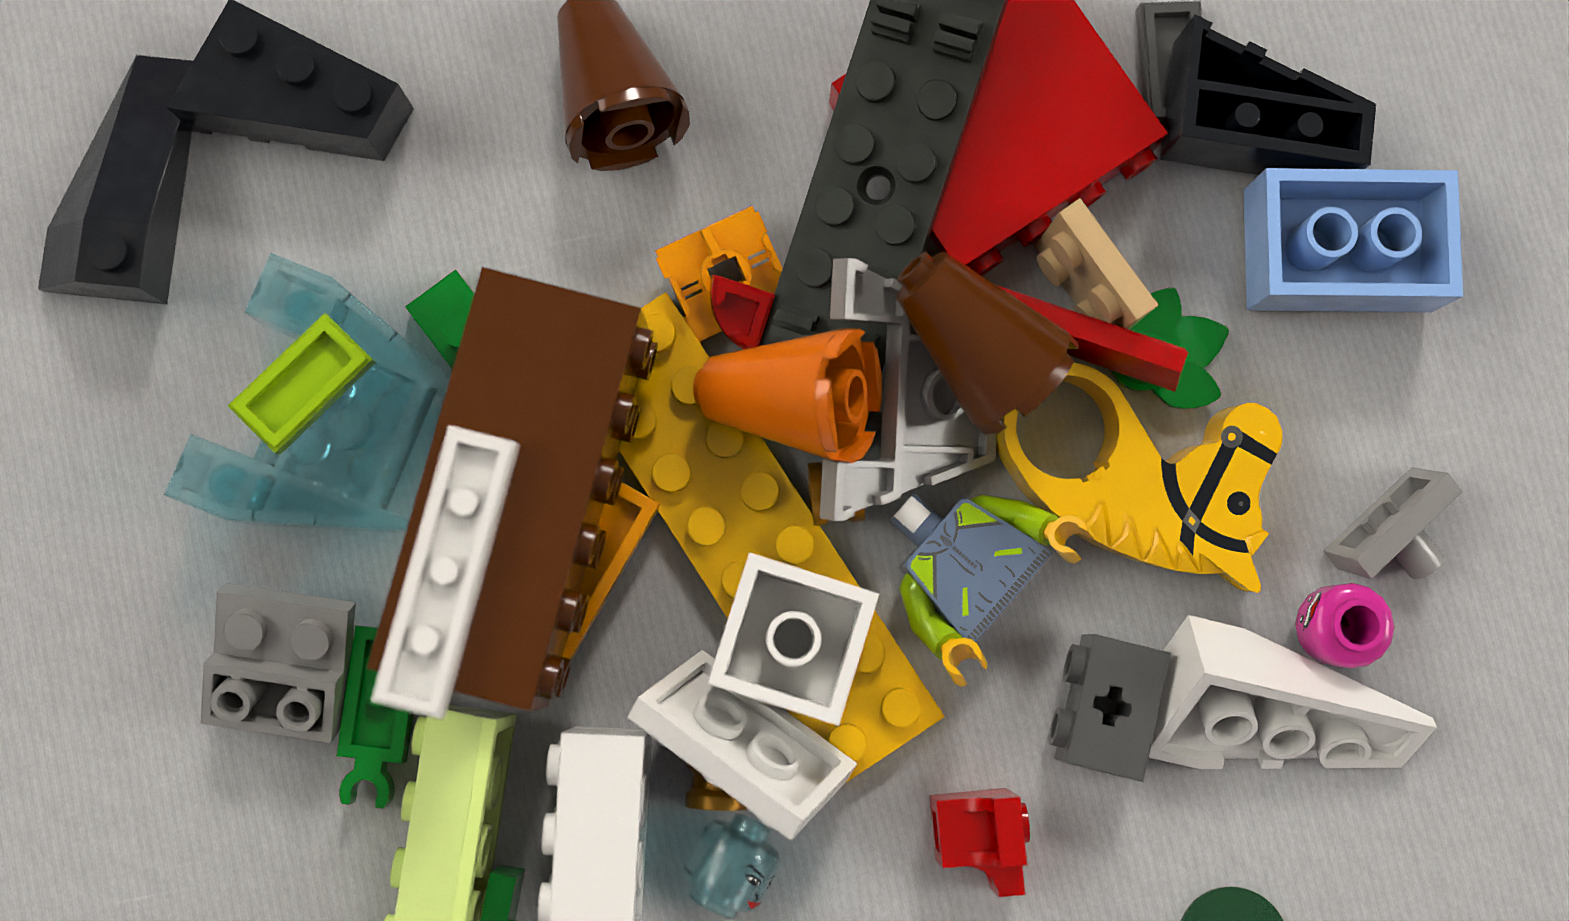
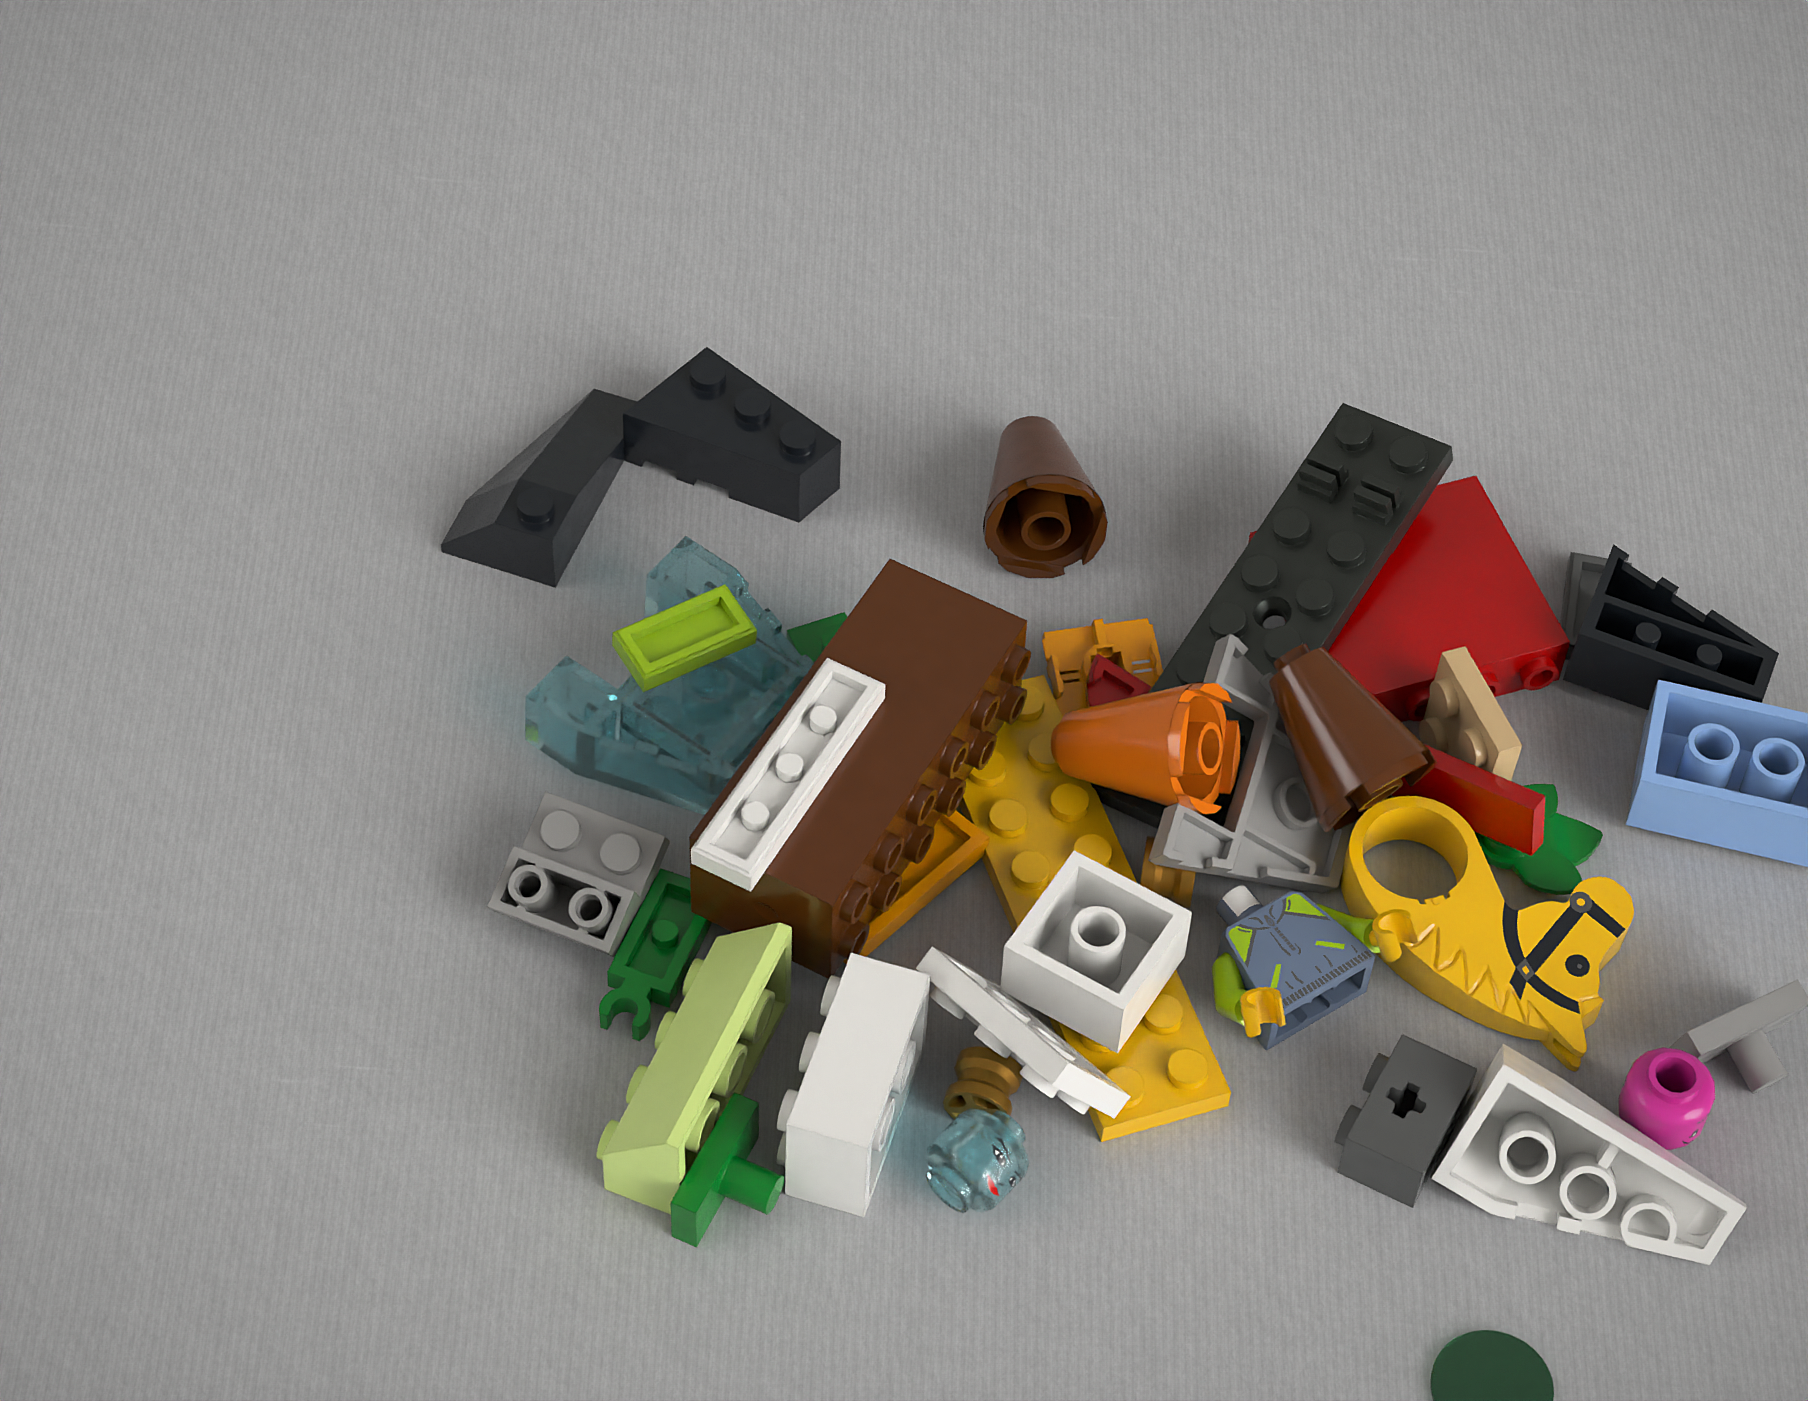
camera: 20 degrees right, 30 degrees down
(983, 833) = (1244, 1196): red brick -> none

